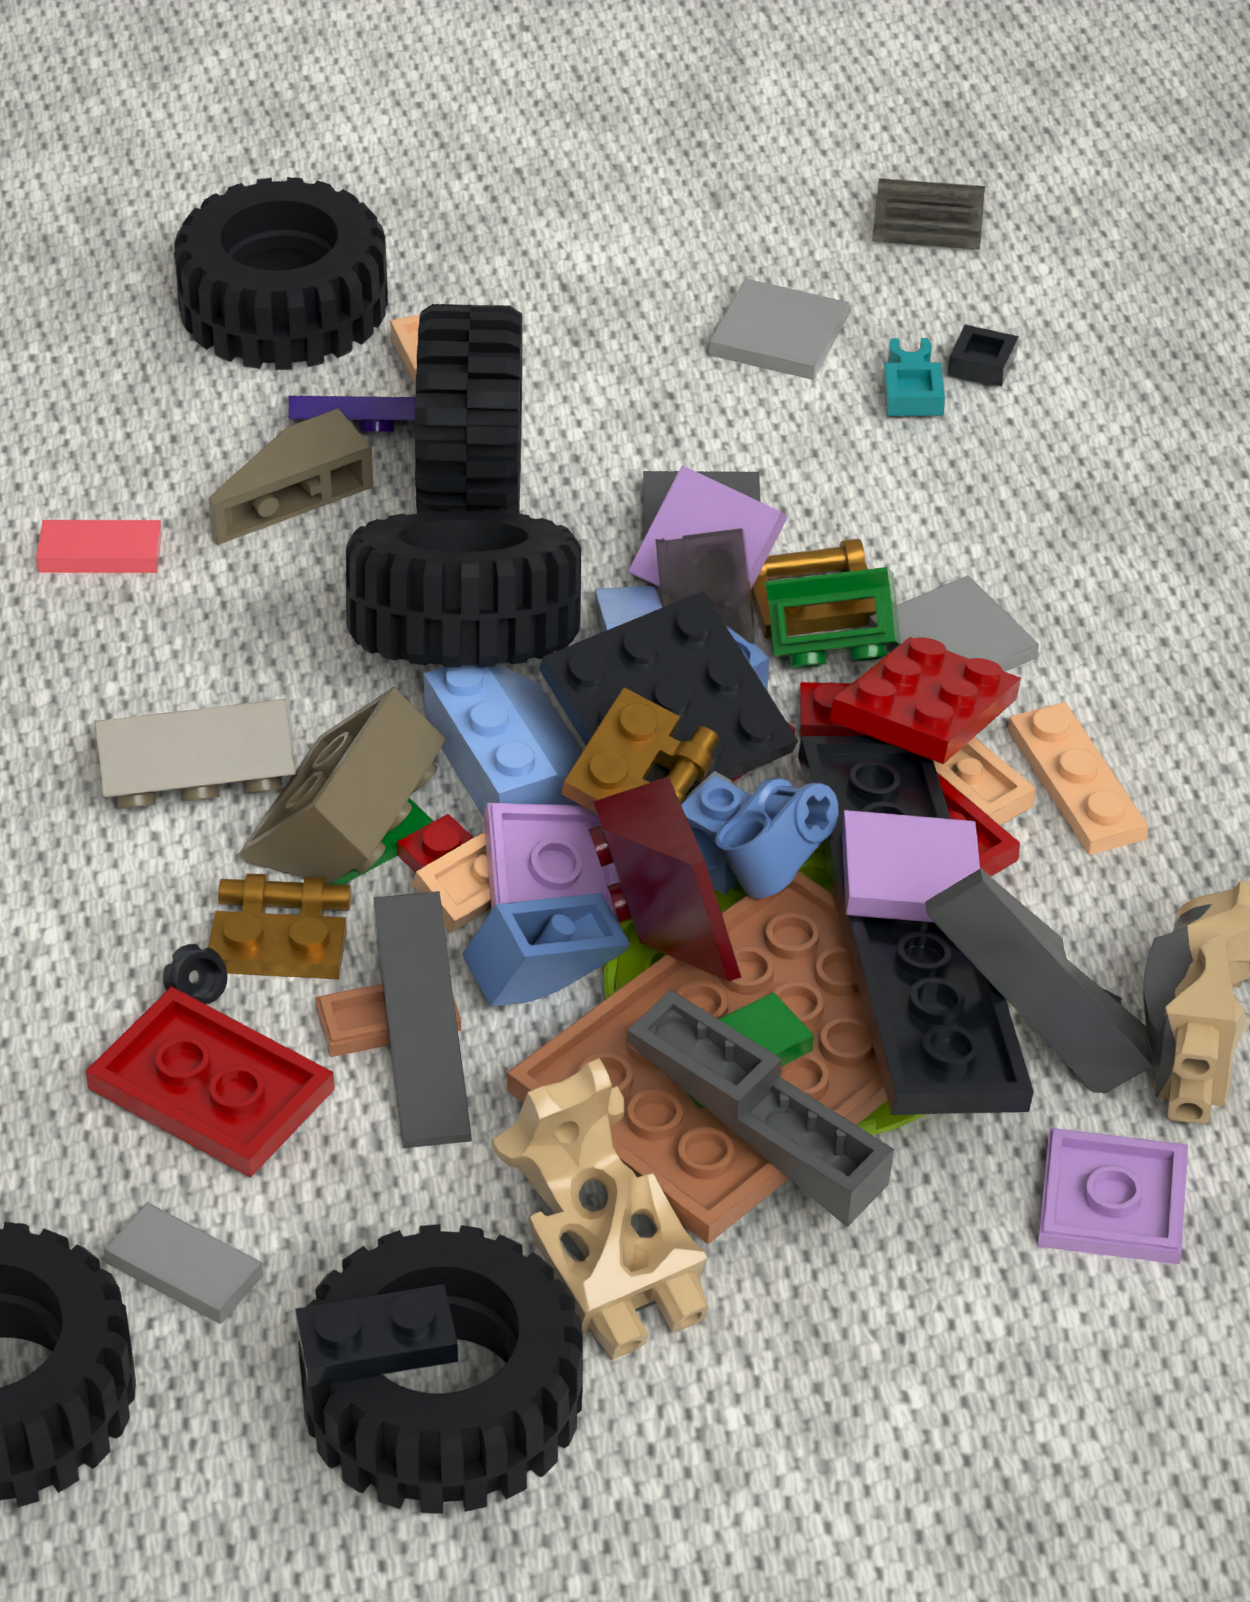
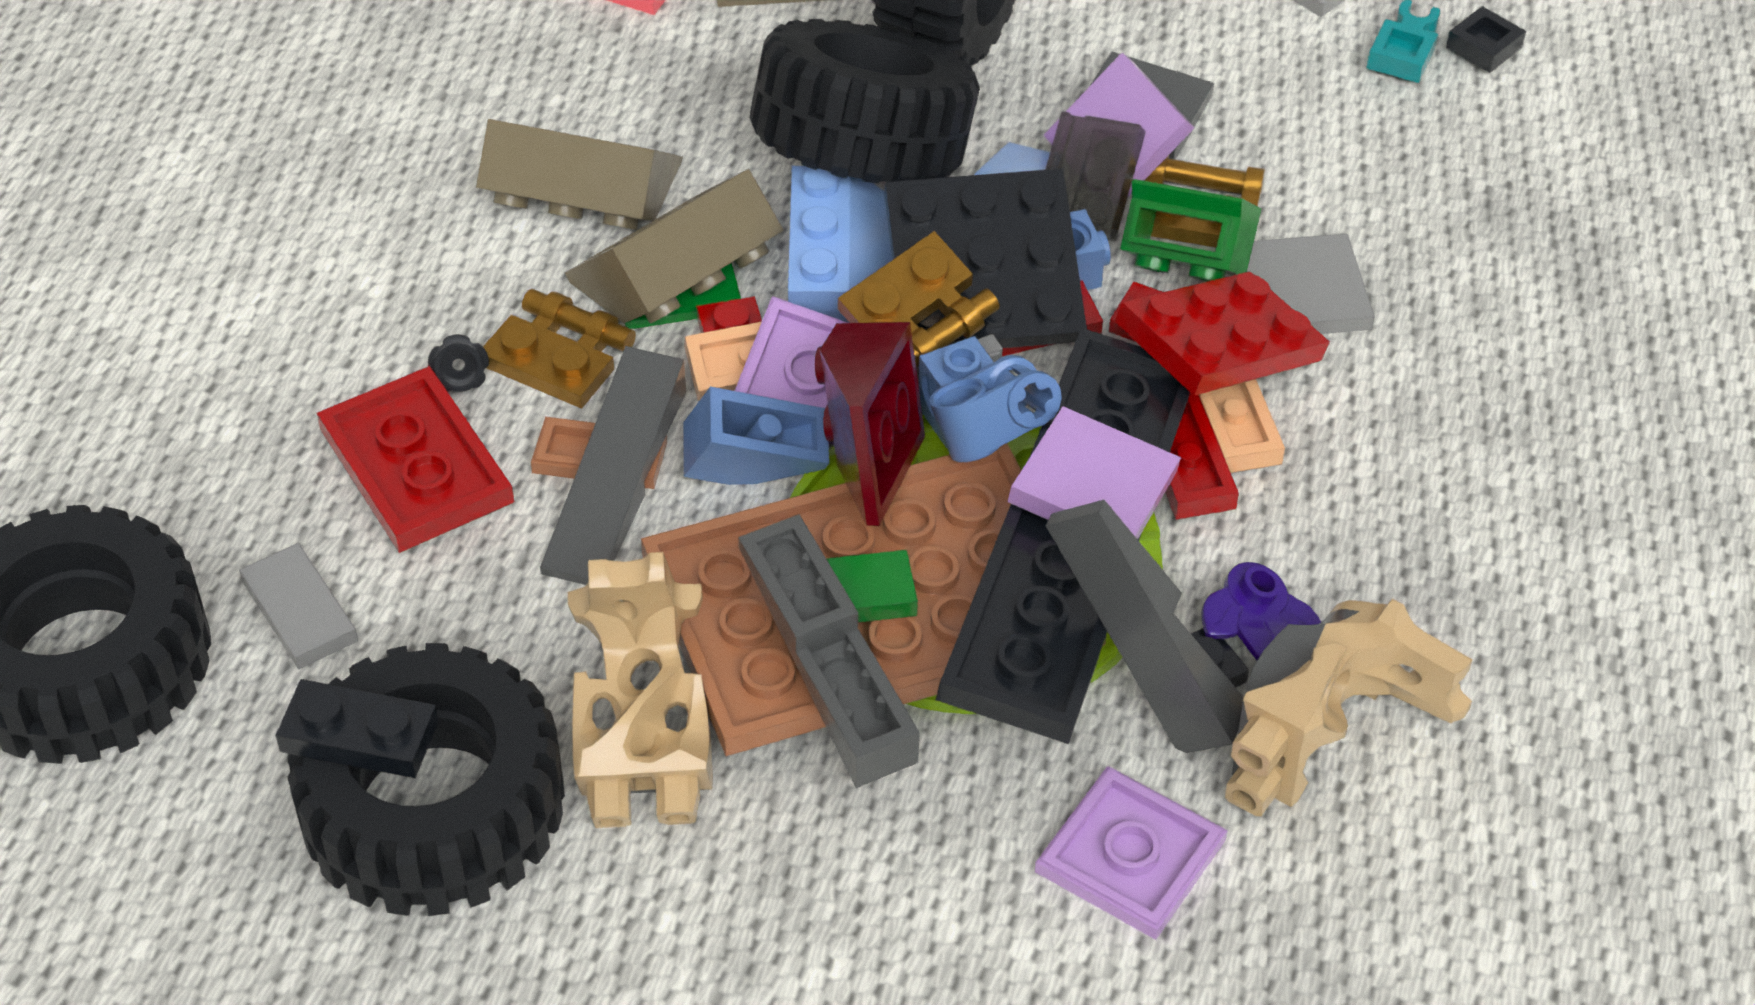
camera: 25 degrees right, 5 degrees up
(1077, 778) = (1338, 452): light nougat plate -> none
(1103, 943) = (1253, 607): none -> dark purple plate

